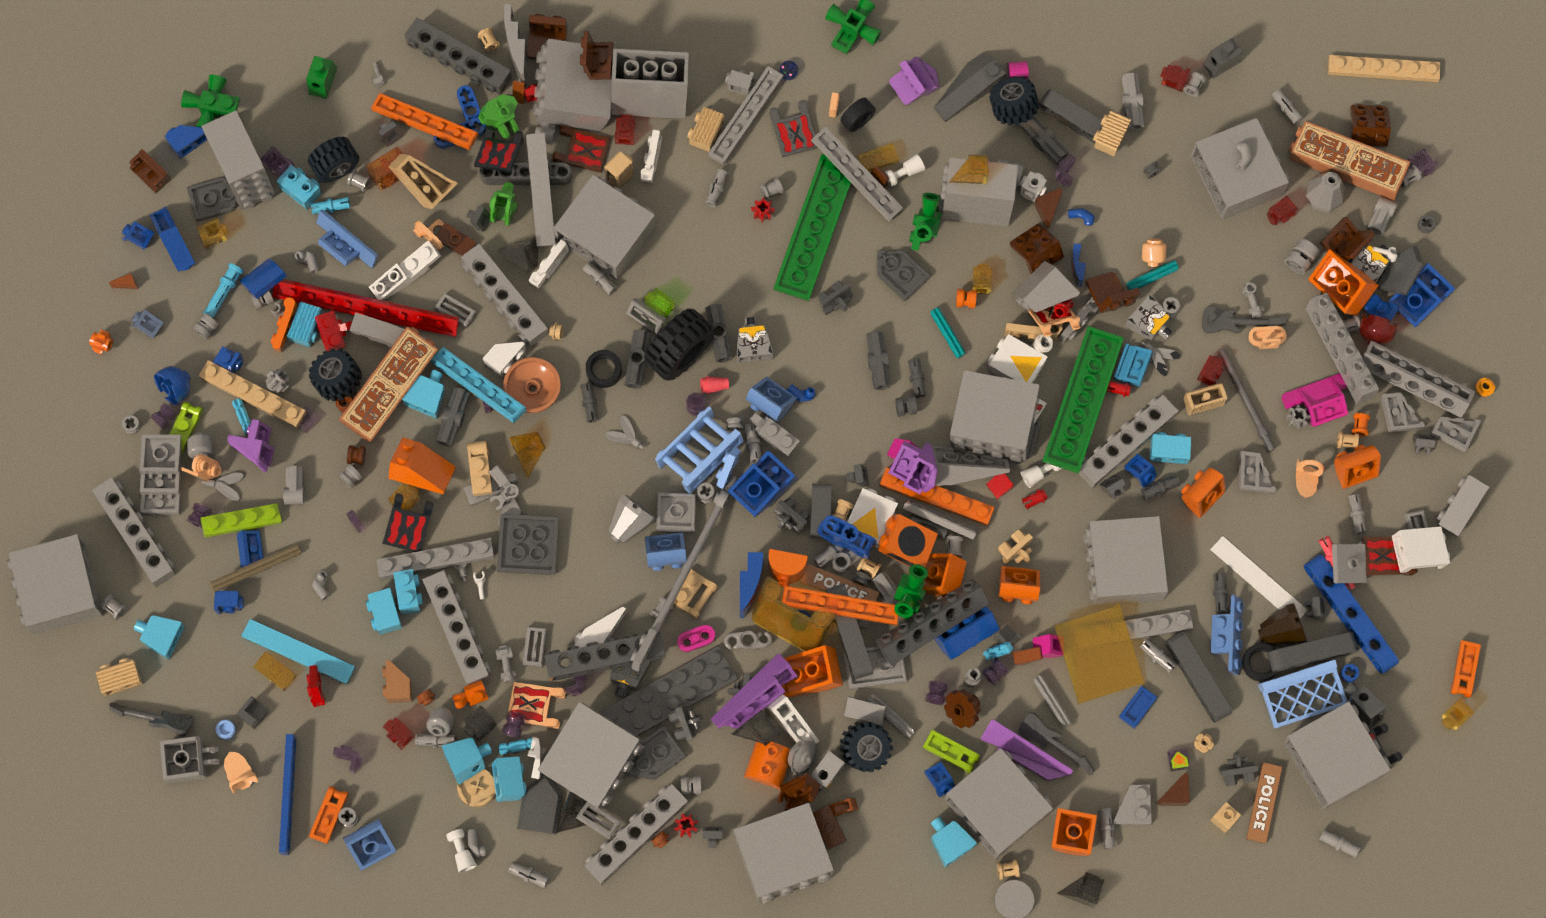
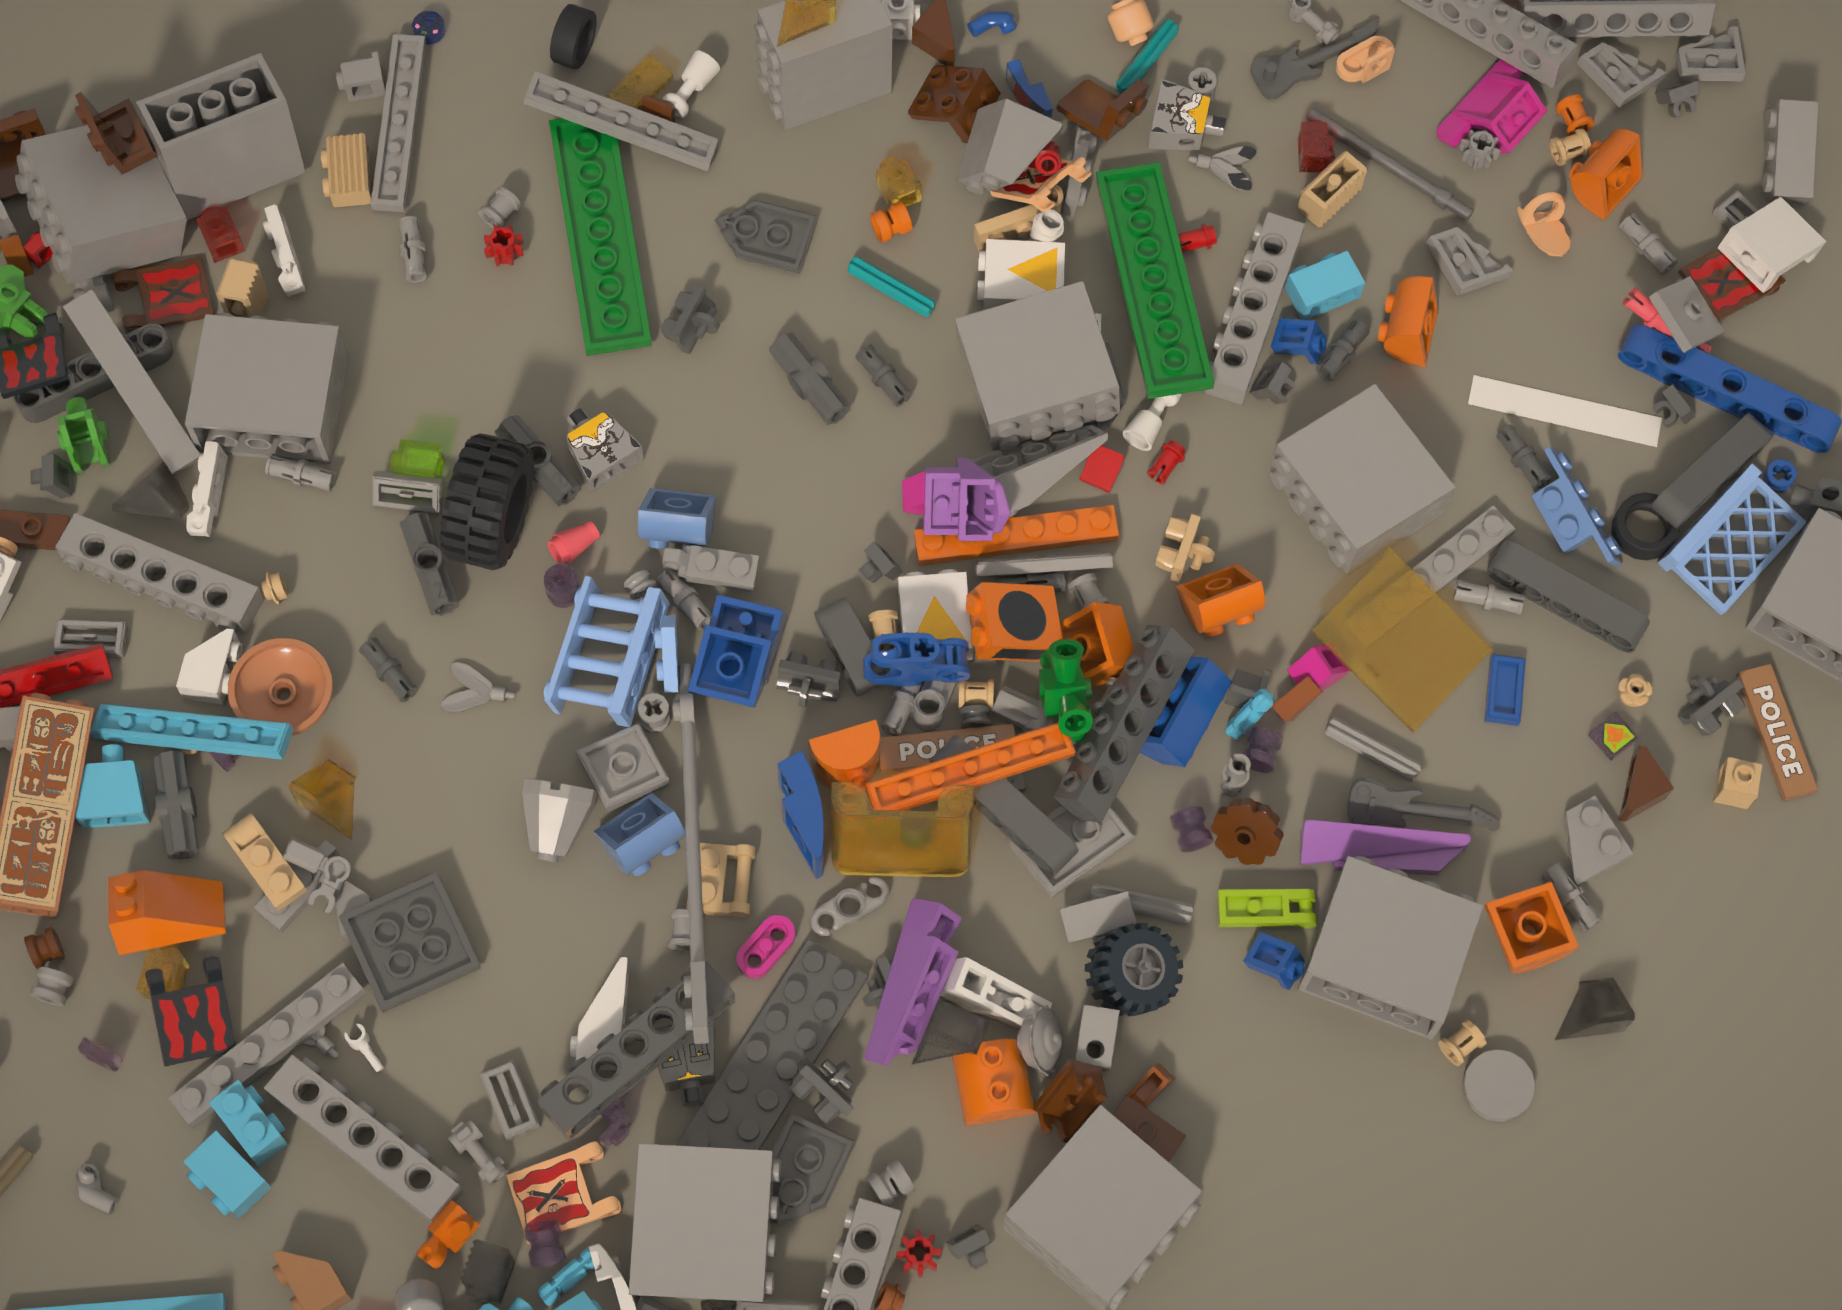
camera: 30 degrees left, 5 degrees down
(426, 697) = (373, 1279): dark orange plate -> none
(603, 354) = (376, 582): black tyre -> none
(795, 132) = (489, 112): flag -> none
(802, 395) = (723, 488): blue arm -> none
(815, 671) = (986, 895): orange slope -> none
(834, 105) = (527, 42): light nougat tile -> none
(911, 406) = (892, 423): dark grey wheel -> none
(926, 221) = (767, 134): green brick -> none
(951, 841) = (1349, 1047): medium azure torso -> none
(1133, 365) = (1196, 195): dark azure plate -> none
(1283, 627) = (1649, 456): dark brown cone -> none

